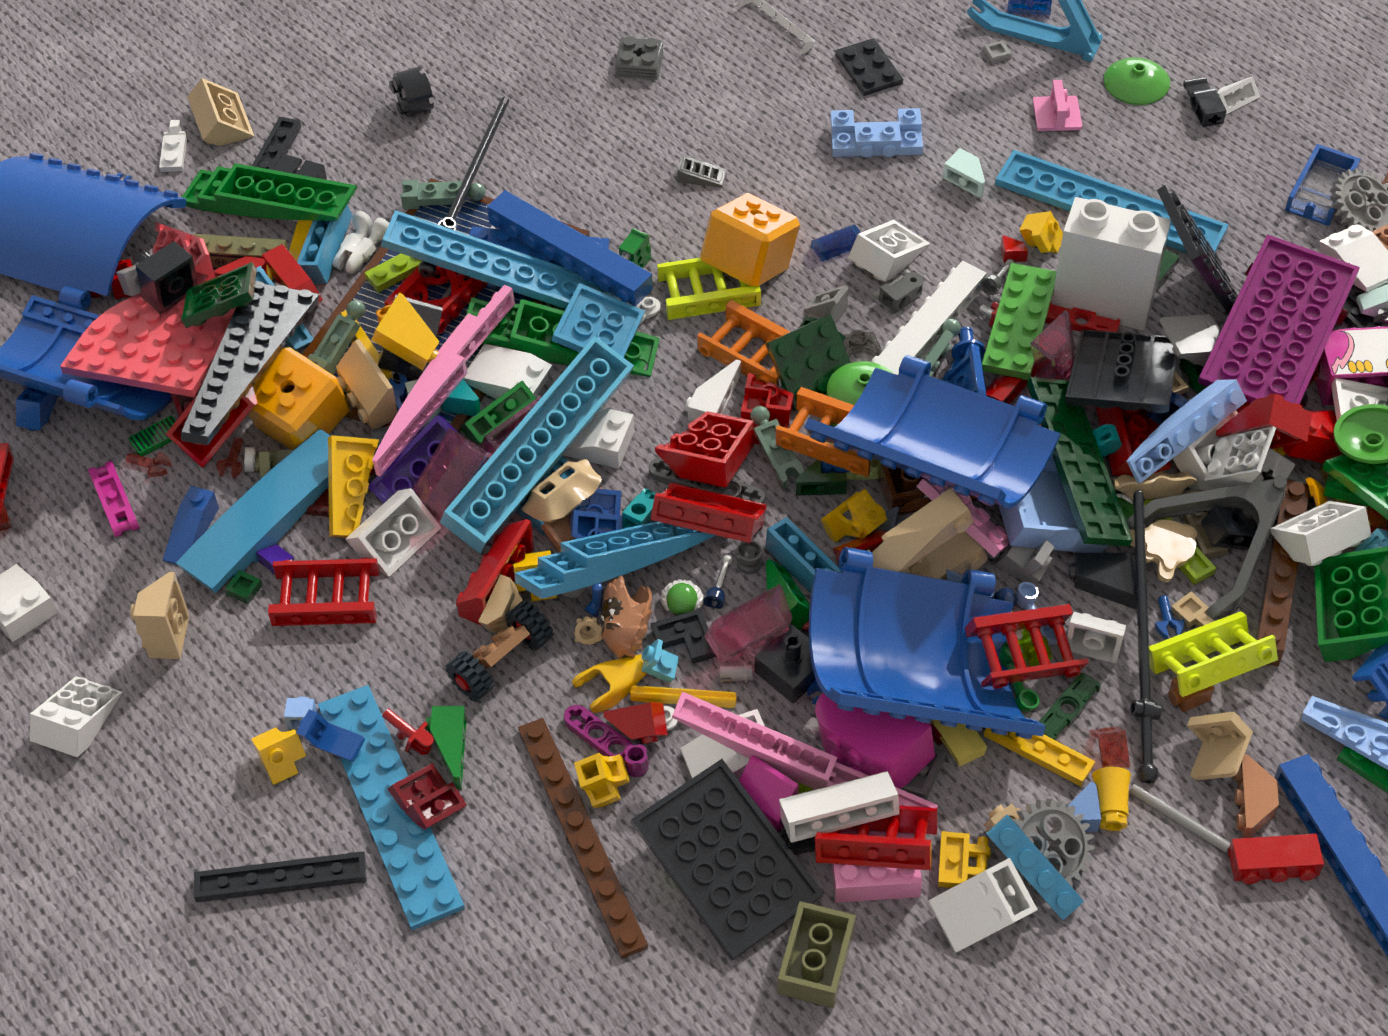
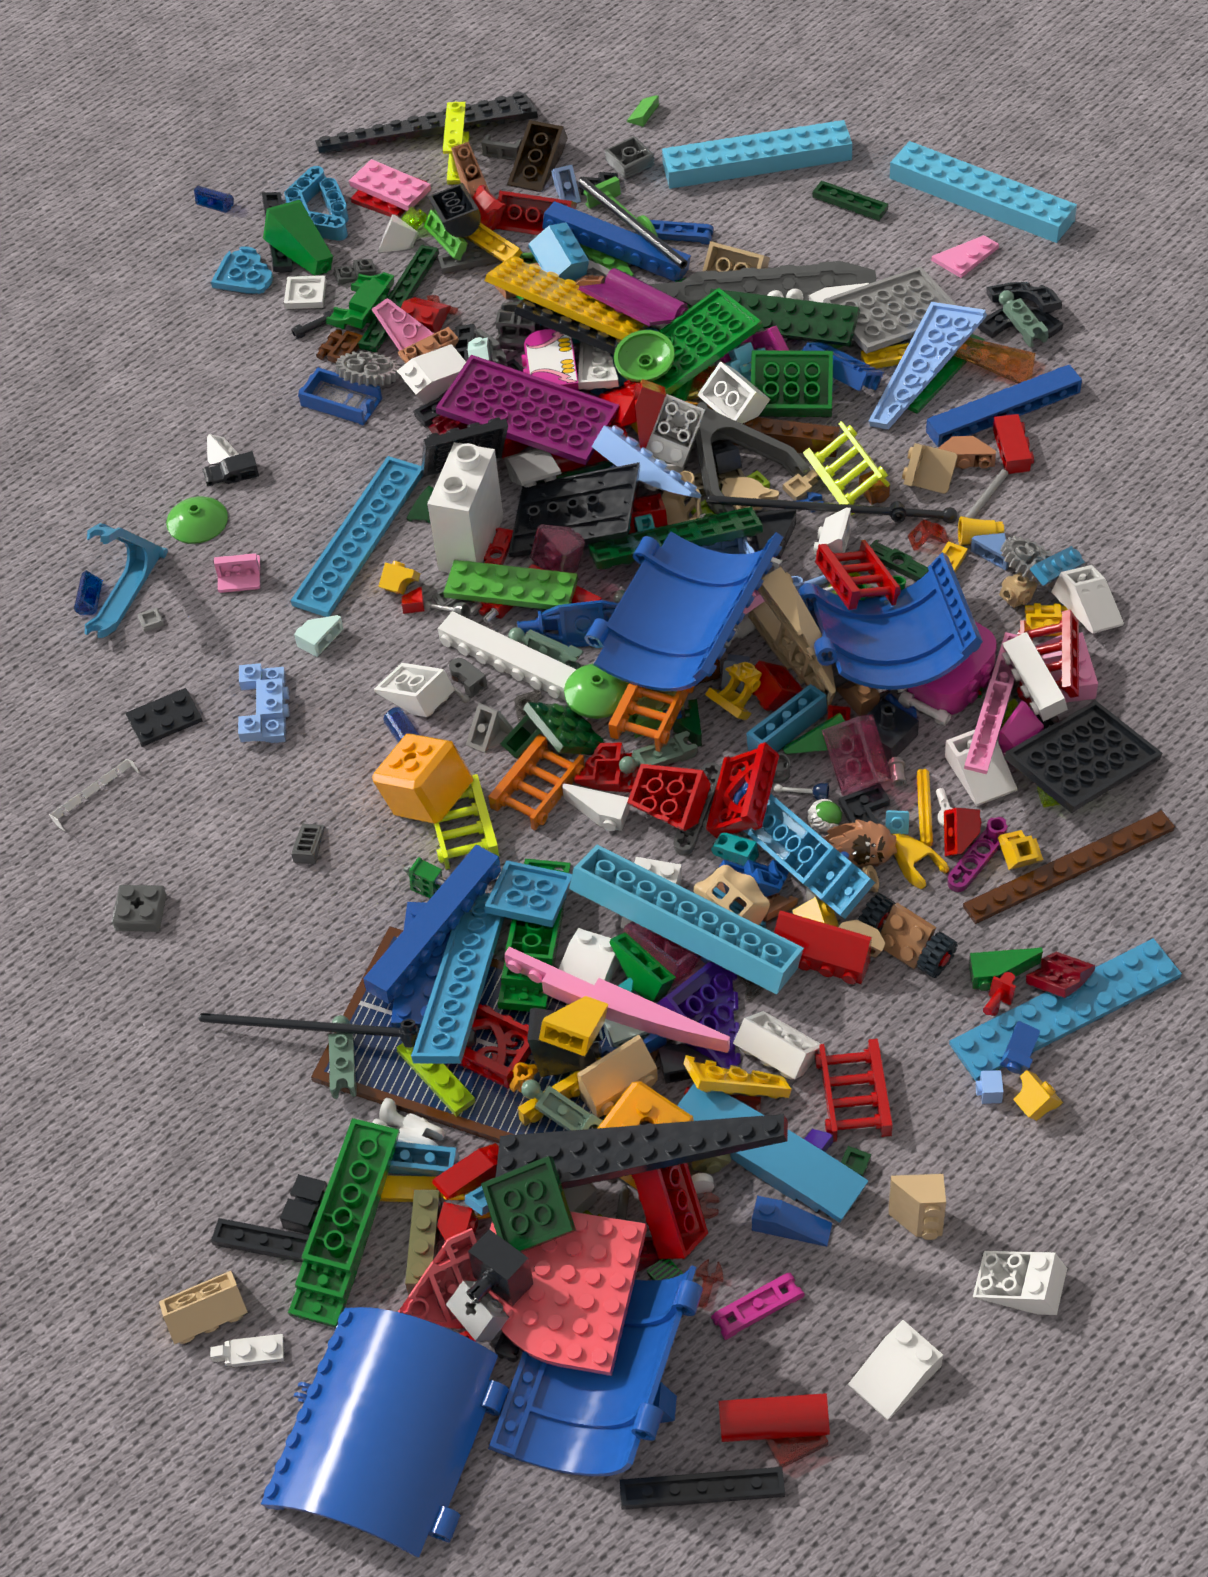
camera: 90 degrees left, 0 degrees up
(280, 876) = (1156, 1078): black plate -> none
(411, 91) = (187, 1104): black brick -> none
(449, 470) = (721, 990): clear pink slope -> none
(816, 954) = (1152, 698): olive brick -> none

